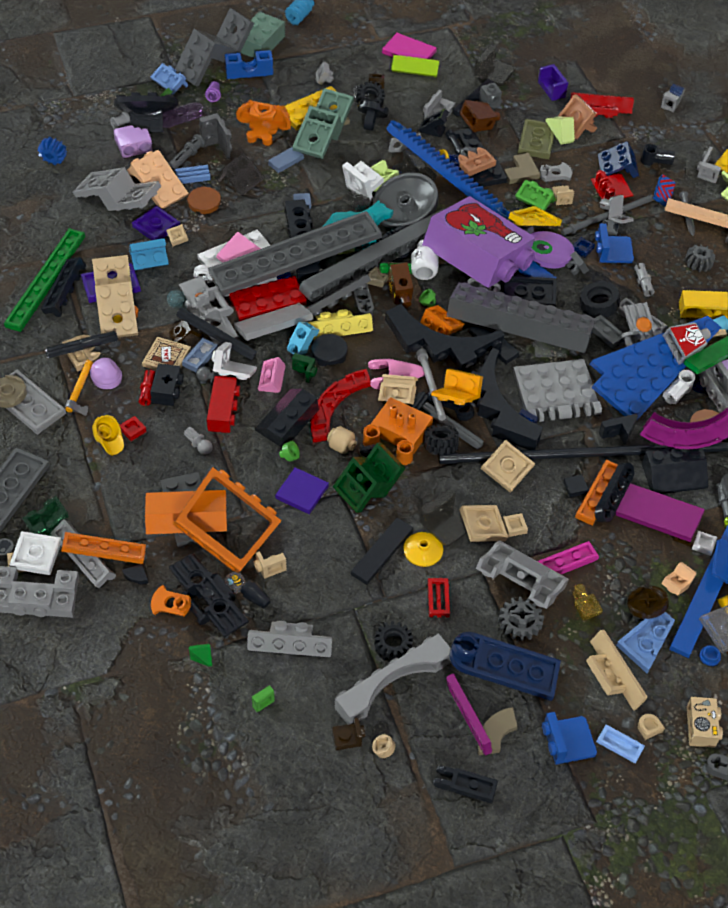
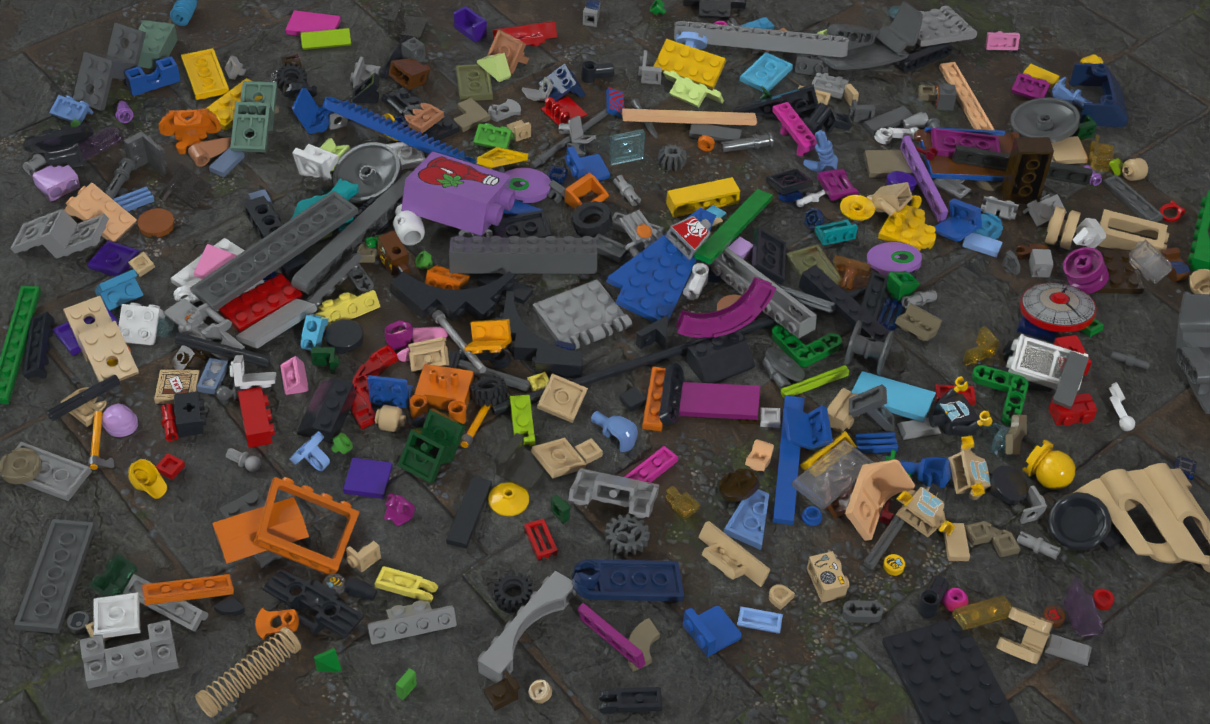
camera: 20 degrees left, 5 degrees down
(154, 289) = (140, 323): none -> white bracket
(172, 618) = (205, 700): none -> tan piece
(259, 453) = (312, 453): none -> light blue tile
(267, 144) = (205, 150): none -> nougat piece
(296, 73) = (205, 74): none -> yellow plate
(297, 602) = (405, 584): none -> light yellow hinge
(317, 529) = (398, 509): none -> magenta piece
(350, 414) = (389, 391): none -> blue bracket
(374, 132) = (311, 116): none -> blue bracket
(378, 368) = (400, 339): none -> magenta piece
(404, 480) = (467, 439): none -> light orange piece
(448, 192) = (408, 155): none -> white tile
(463, 475) = (522, 418): none -> lime plate
(467, 573) = (560, 509): none -> dark green plate
(491, 443) = (538, 381): none -> light yellow tile
(551, 511) = (618, 426): none -> medium blue piece
(592, 165) = (540, 94): none -> light grey bracket
(602, 265) = (582, 187): none -> orange tile
(658, 237) = (627, 147): none -> clear light blue tile

